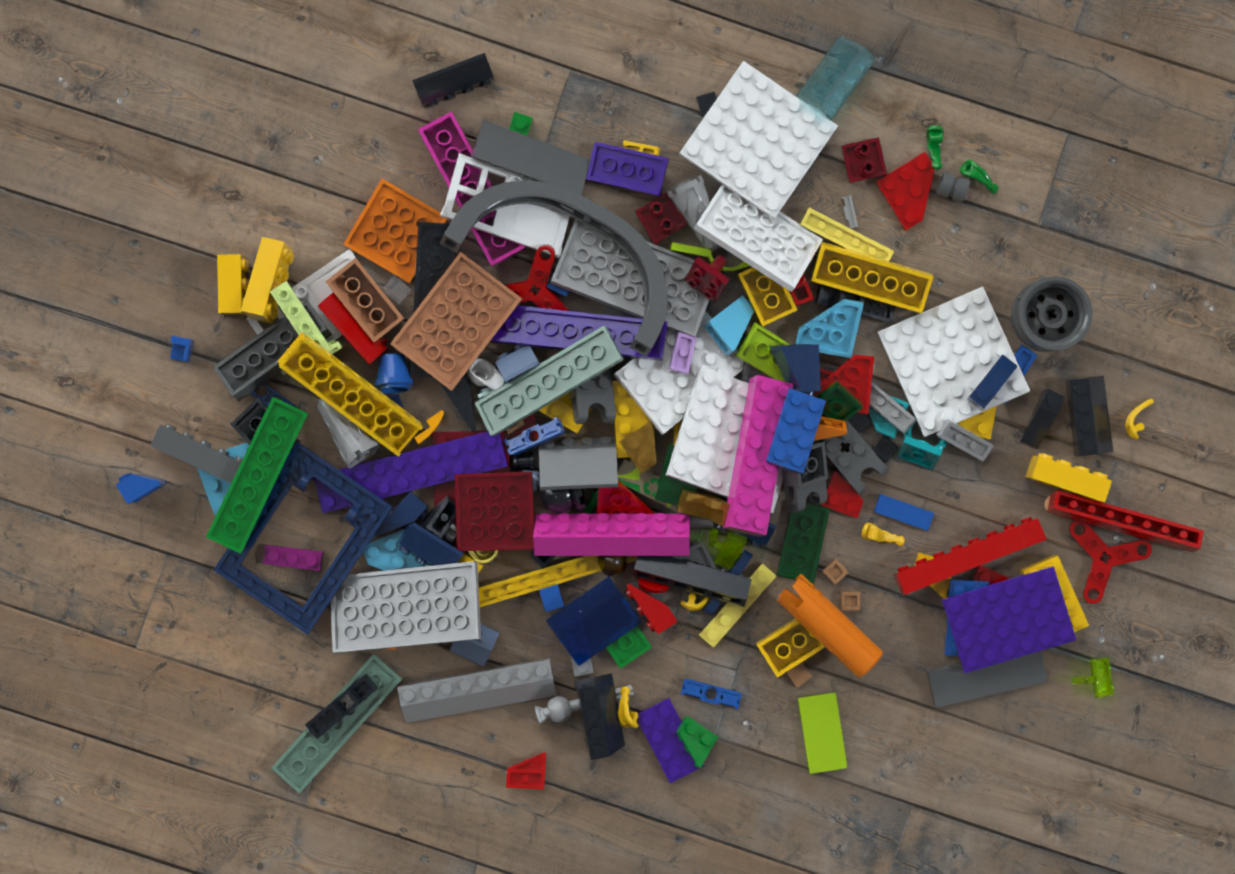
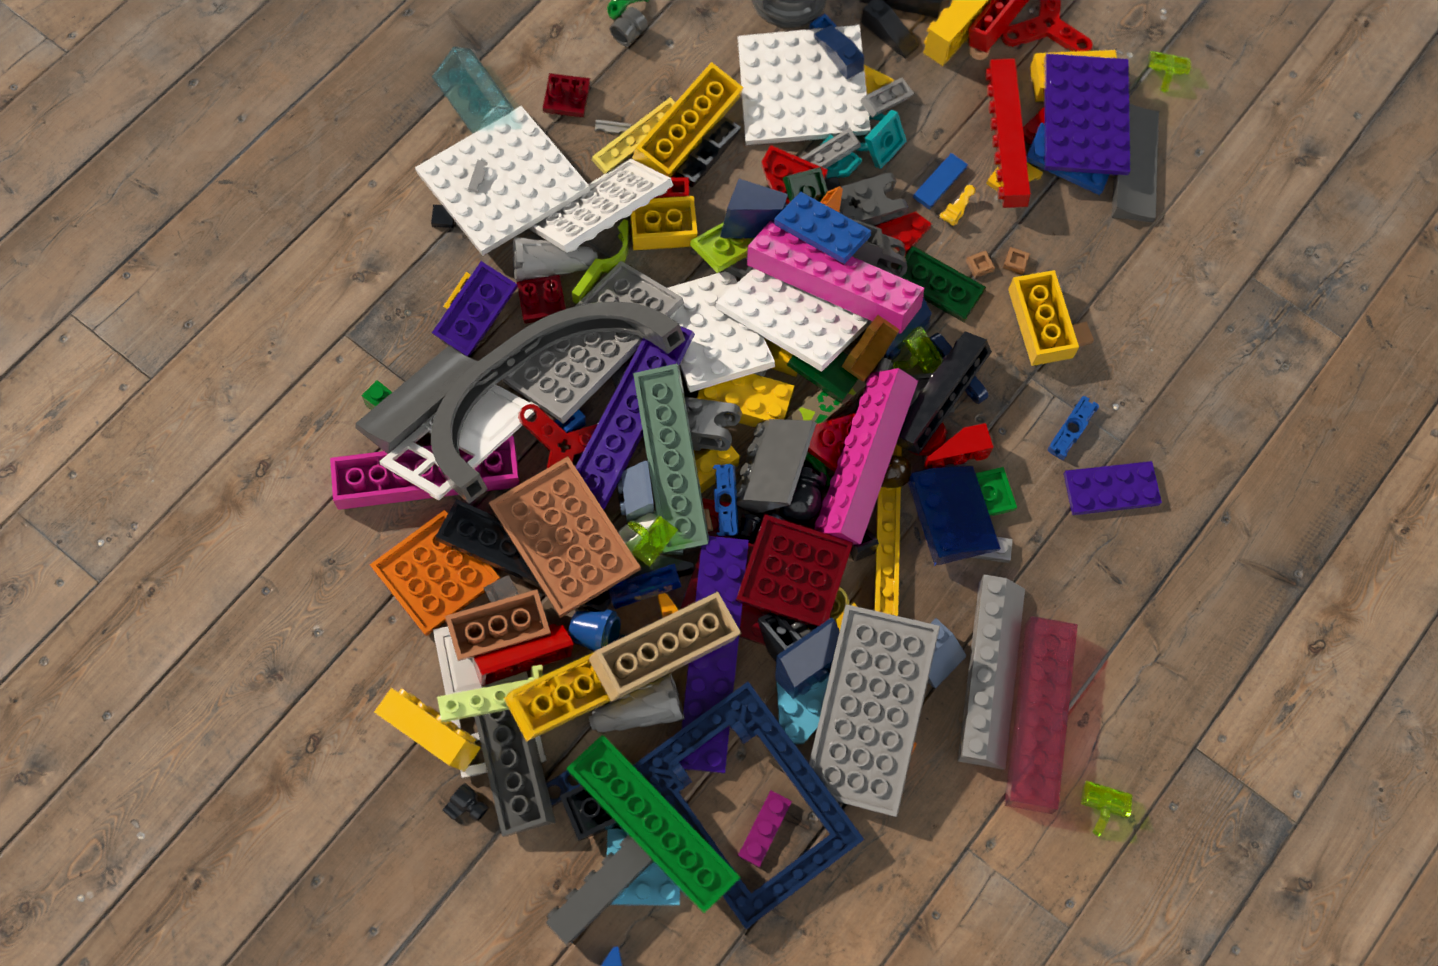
camera: 80 degrees left, 20 degrees down
(181, 348) = (464, 869): blue panel -> none
(229, 328) = (465, 800): none -> black piece
(232, 283) = (415, 773): yellow brick -> none
(310, 755) = (982, 850): sand green plate -> none
(341, 706) = (963, 832): black slope -> none
(389, 435) = (664, 646): none -> tan brick
(407, 511) = (758, 671): dark blue slope -> none
(407, 806) = (1106, 800): none -> clear neon green plate
(440, 400) = (645, 586): none -> clear blue plate
(453, 80) = (298, 448): black slope -> none
(456, 738) = (1041, 715): none -> clear pink brick
(476, 391) = (652, 540): none -> clear neon green plate
(528, 773) = (1106, 650): red wing -> none
(551, 597) = (913, 550): blue panel -> none
(560, 709) = (1042, 585): light grey piece -> none
(599, 716) = (1065, 547): black slope -> none
(626, 718) = (1072, 518): yellow piece -> none
(641, 447) = (780, 392): pearl gold wing -> none
(682, 353) = (695, 316): lavender plate -> none
(690, 605) = (968, 412): yellow piece -> none
(696, 740) = (1121, 456): green wing -> none
(708, 277) = (625, 263): dark red plate -> none
(730, 325) = (684, 267): medium azure slope -> none
(731, 613) = (991, 377): light yellow plate -> none
(749, 119) = (478, 176): none -> light grey piece
(822, 732) = (1149, 334): lime tile -> none
(831, 627) = (1045, 268): orange piece -> none
(833, 329) = (722, 170): medium azure plate -> none
(884, 449) = (866, 172): black tile -> none
(908, 190) = (613, 69): red plate -> none
(935, 137) = (570, 28): green piece -> none

